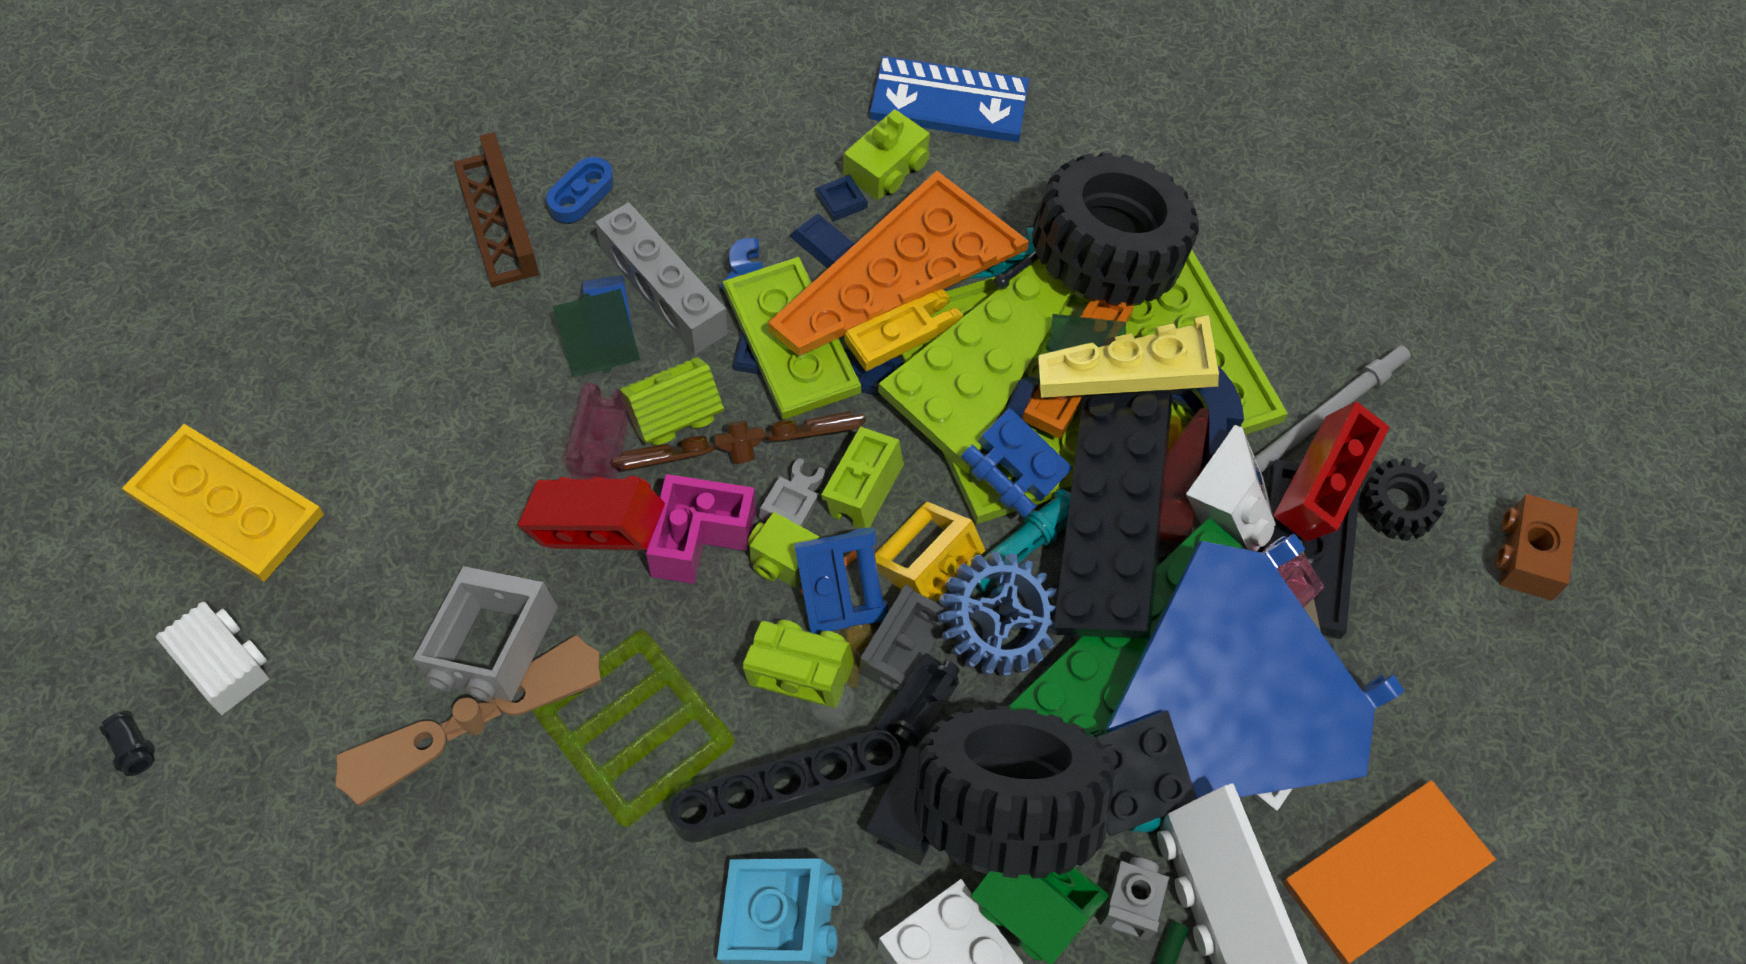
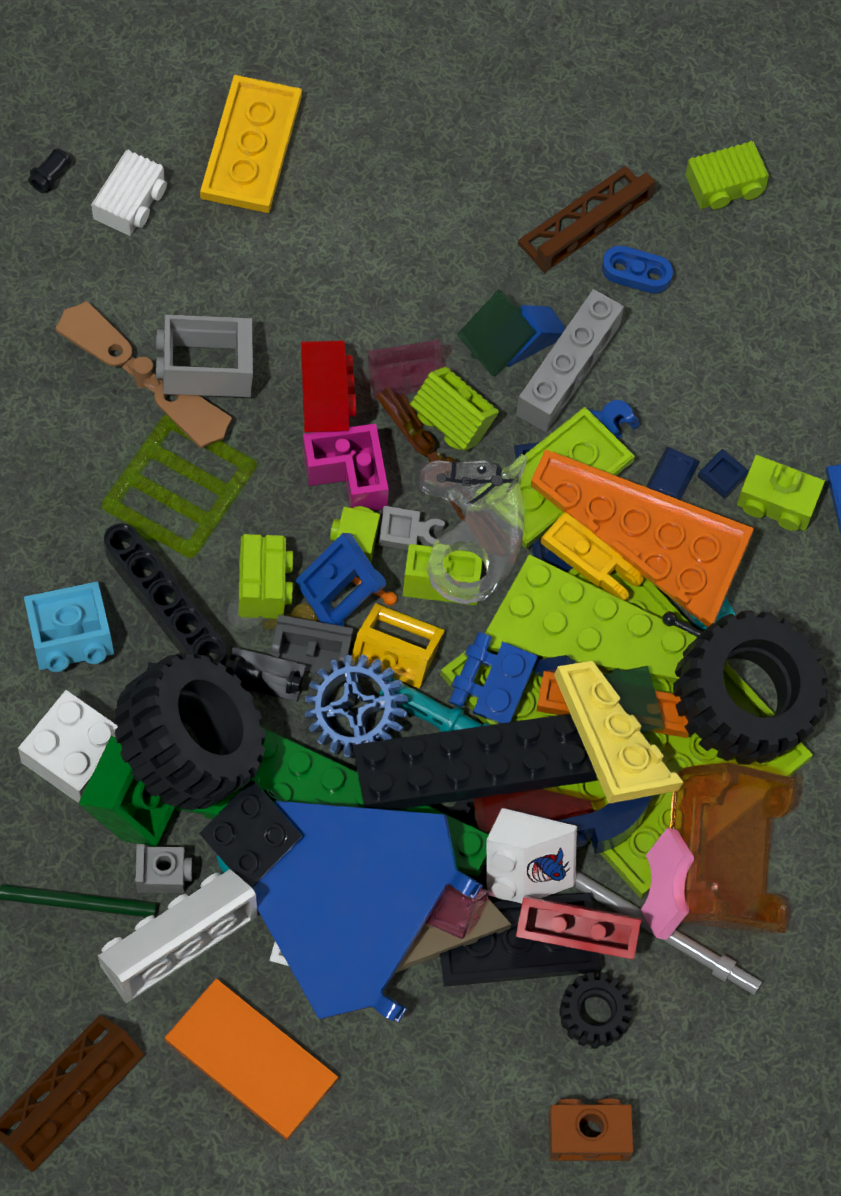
camera: 70 degrees right, 5 degrees up
(514, 80) = (727, 175): none -> lime brick
(832, 405) = (492, 524): none -> clear animal
(1267, 335) = (726, 825): none -> clear orange windscreen
(1277, 371) = (666, 900): none -> bright pink tile

